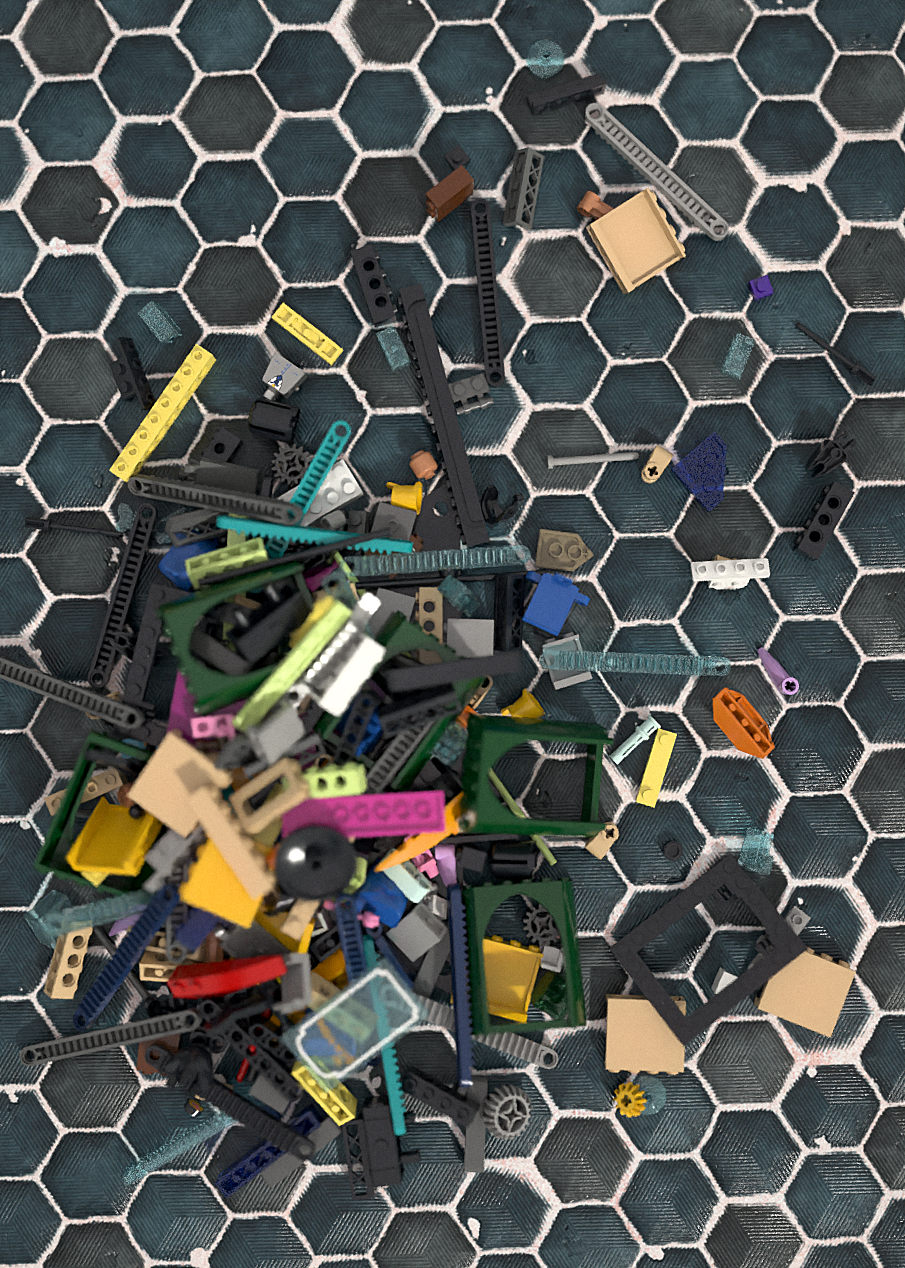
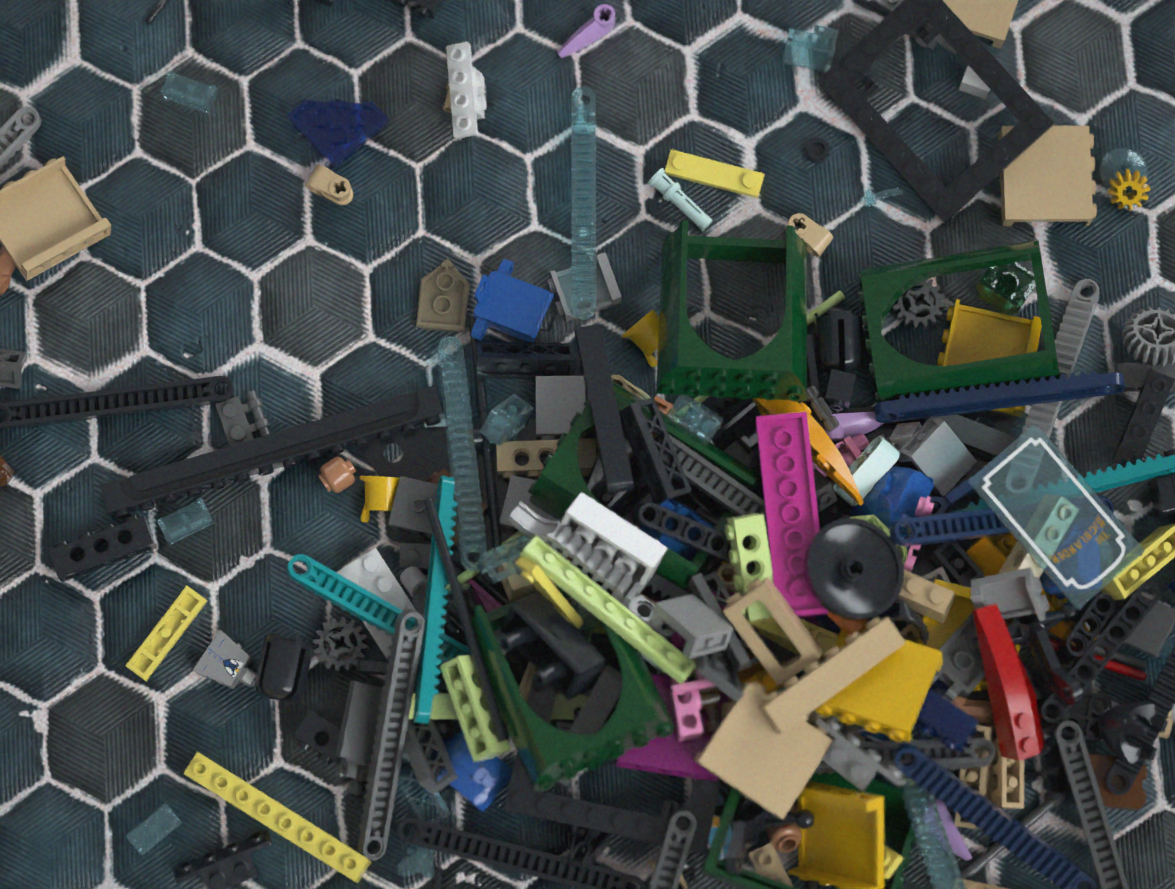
camera: 90 degrees left, 10 degrees down
(456, 843) = (822, 409): none -> dark grey axle
(490, 503) = (401, 375): black helmet -> none
(552, 958) = (960, 288): white panel -> none
(590, 459) = (329, 314): light grey bar -> none
(630, 891) = (870, 200): none -> clear light blue piece
(742, 723) = (654, 70): orange wedge -> none
(760, 287) = (101, 66): dark purple plate -> none

